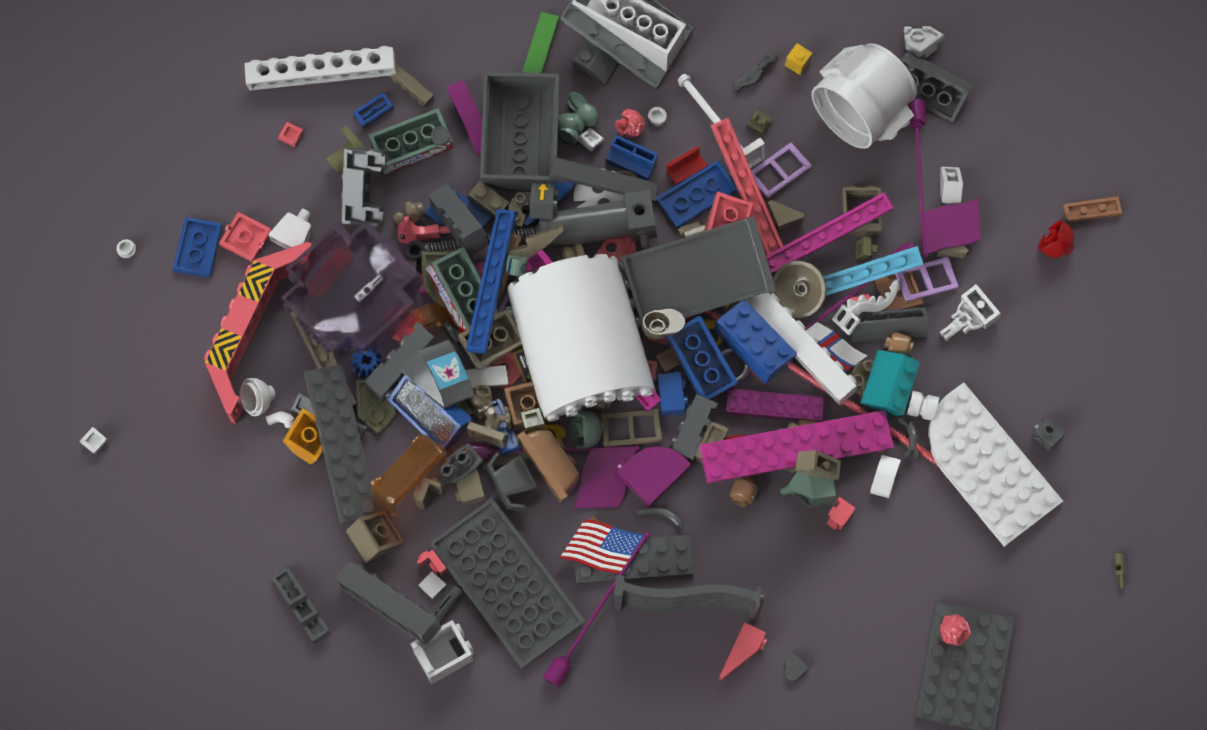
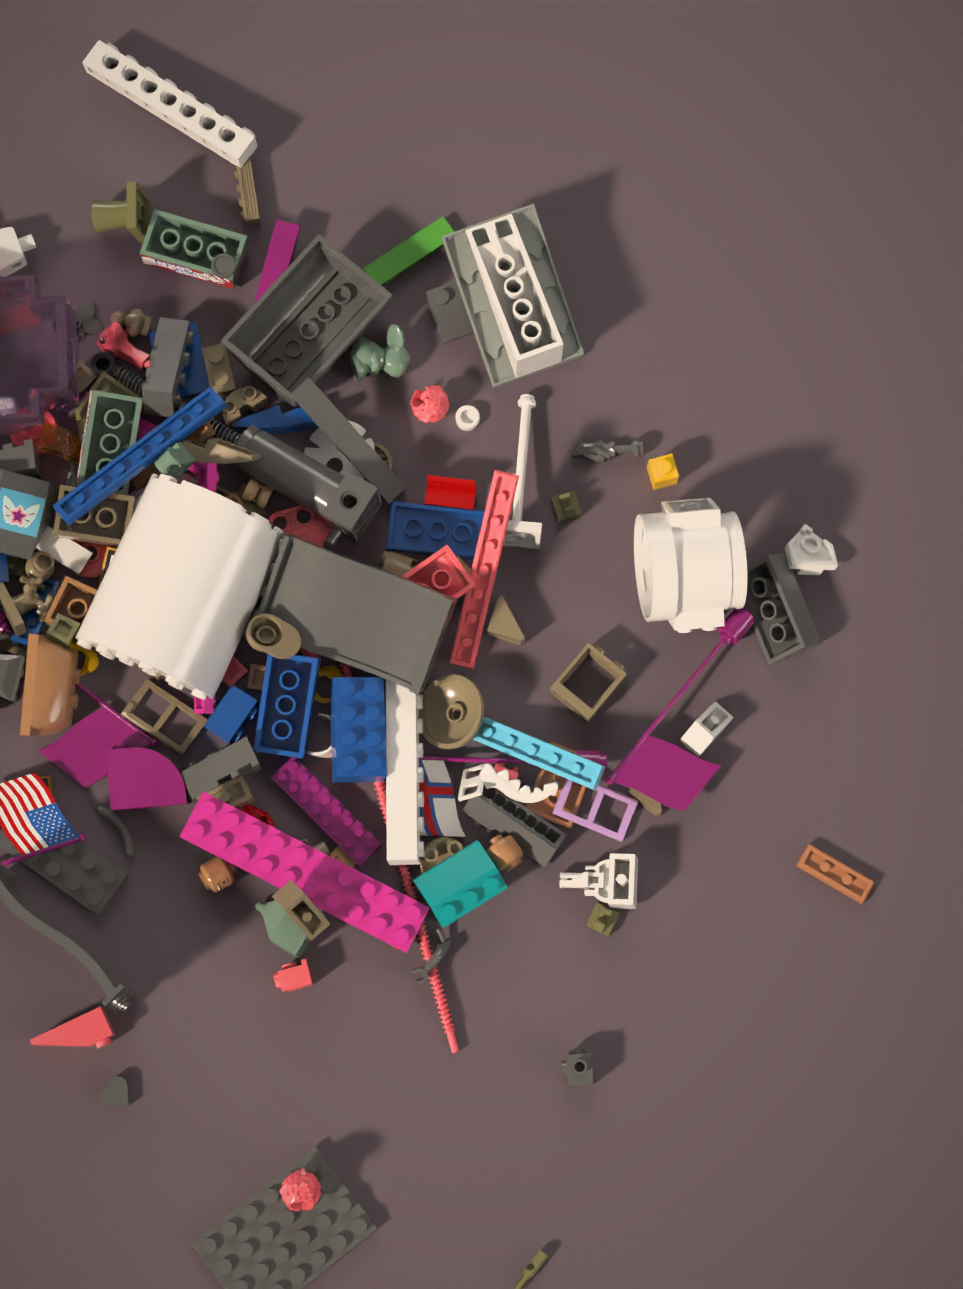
camera: 40 degrees right, 5 degrees up
(291, 134) = (88, 149): coral tile -> none
(358, 186) = (99, 254): bracket -> none
(361, 294) = (12, 368): white pin -> none
(379, 114) = (190, 188): blue tile -> none
(543, 200) = (265, 413): dark grey brick -> none
(586, 429) = (116, 683): sand green cylinder -> none
(590, 139) = (378, 388): white tile -> none
(631, 157) = (401, 441): blue piece -> none
(786, 180) = (543, 555): lavender window -> none
(830, 232) = (528, 677): dark pink tile -> none
(865, 249) = (558, 725): olive tile -> none
(885, 476) = (373, 975): white slope -> none
(922, 405) = (474, 934): white wheel -> none
(985, 340) = (602, 919): none -> olive tile
(988, 466) = (487, 1051): white plate -> none
(1058, 241) = (765, 878): red cylinder -> none

